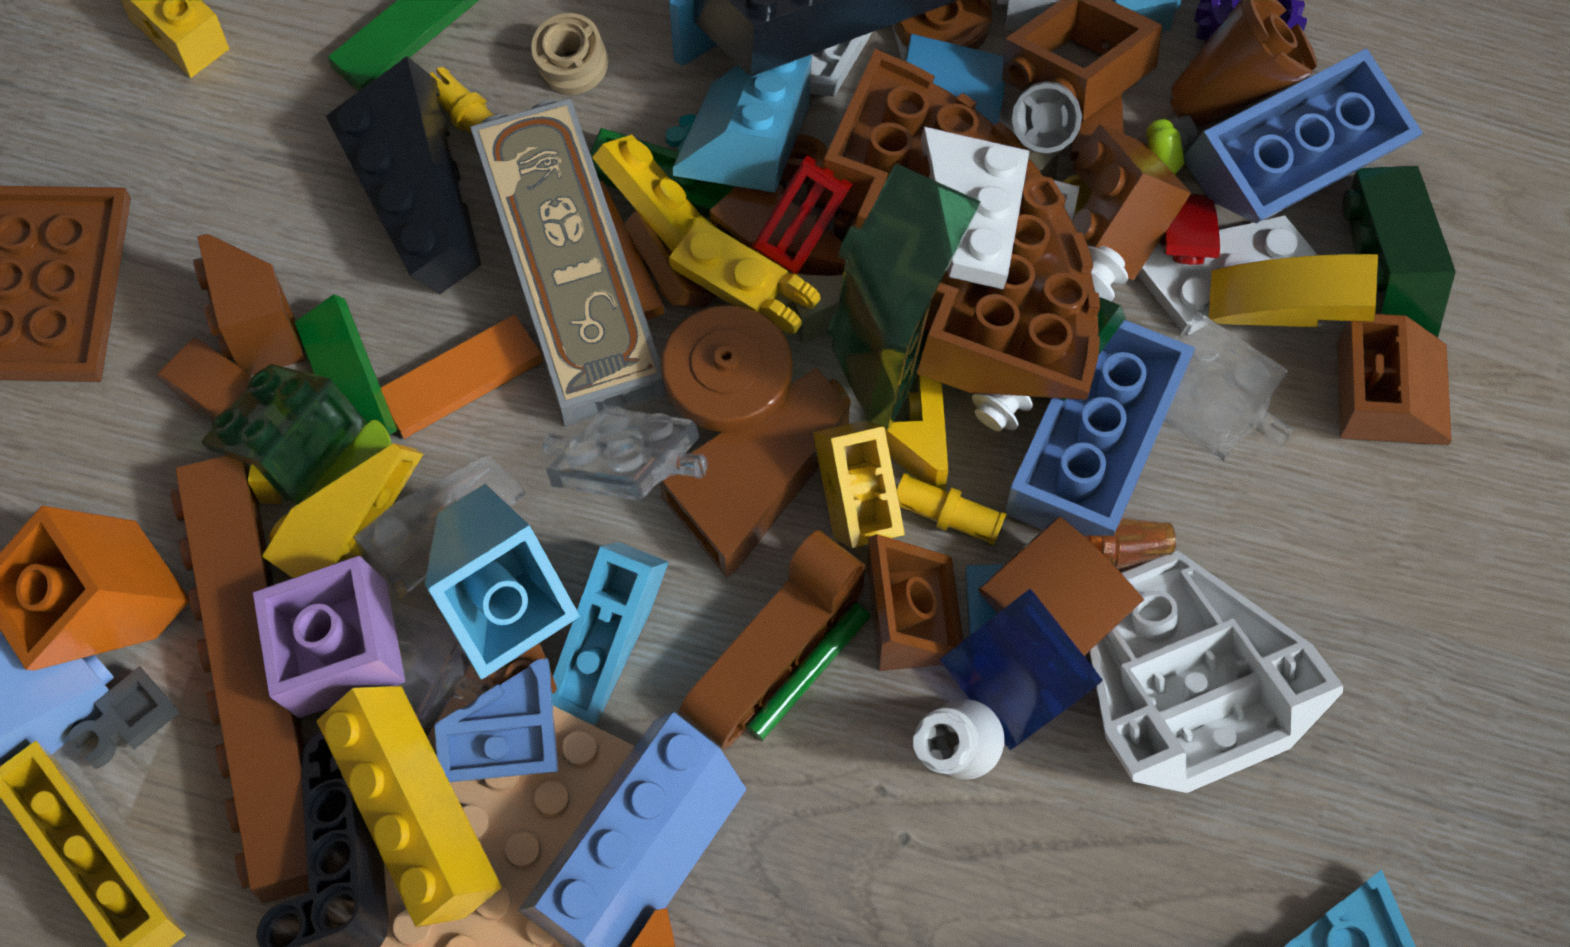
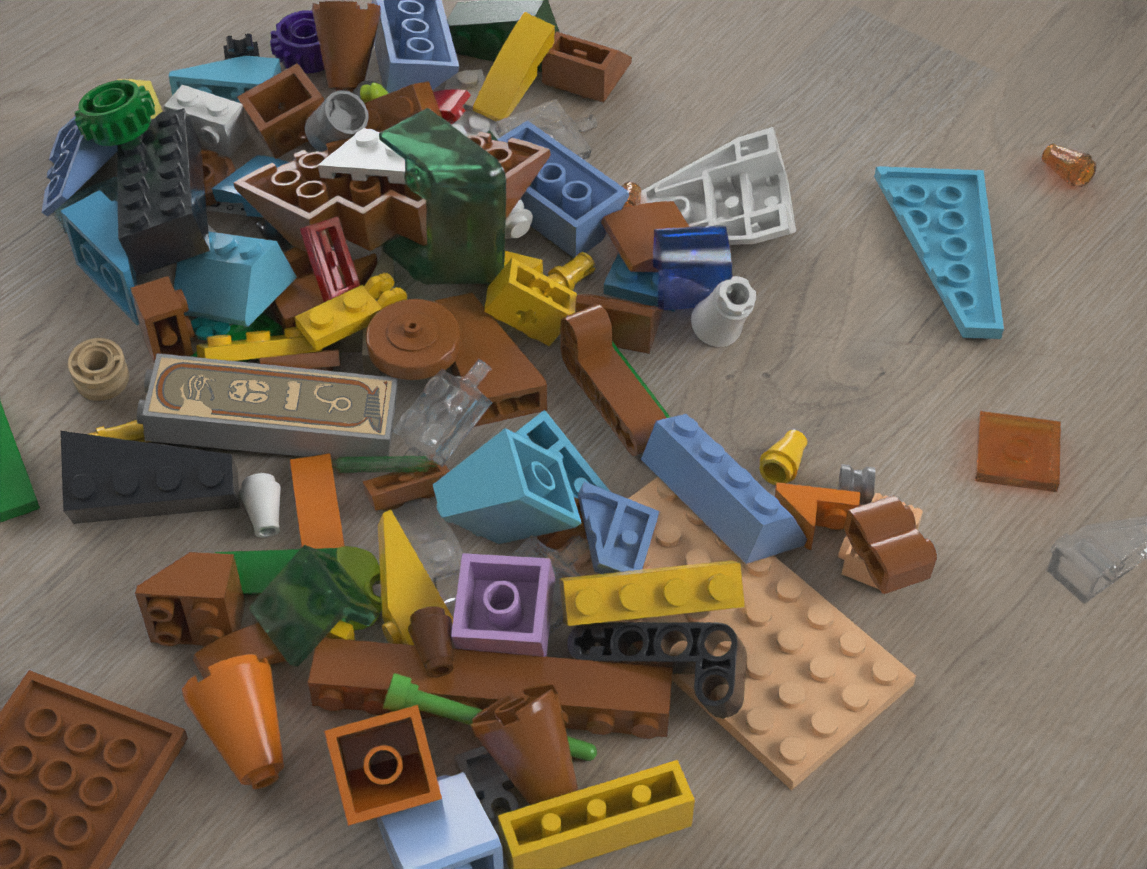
camera: 70 degrees left, 15 degrees down
(114, 423) = (240, 717): none -> orange cone
(148, 738) = (529, 742): none -> dark orange cone
(177, 577) = (405, 694): none -> bright green piece
(255, 570) = (431, 635): none -> reddish brown cone
(436, 314) = (262, 503): none -> white cone
(516, 457) = (395, 488): none -> dark orange plate
(533, 436) = (403, 469): none -> green piece
(647, 82) = (162, 318): none -> dark orange brick
(744, 908) = (783, 459): none -> yellow cone

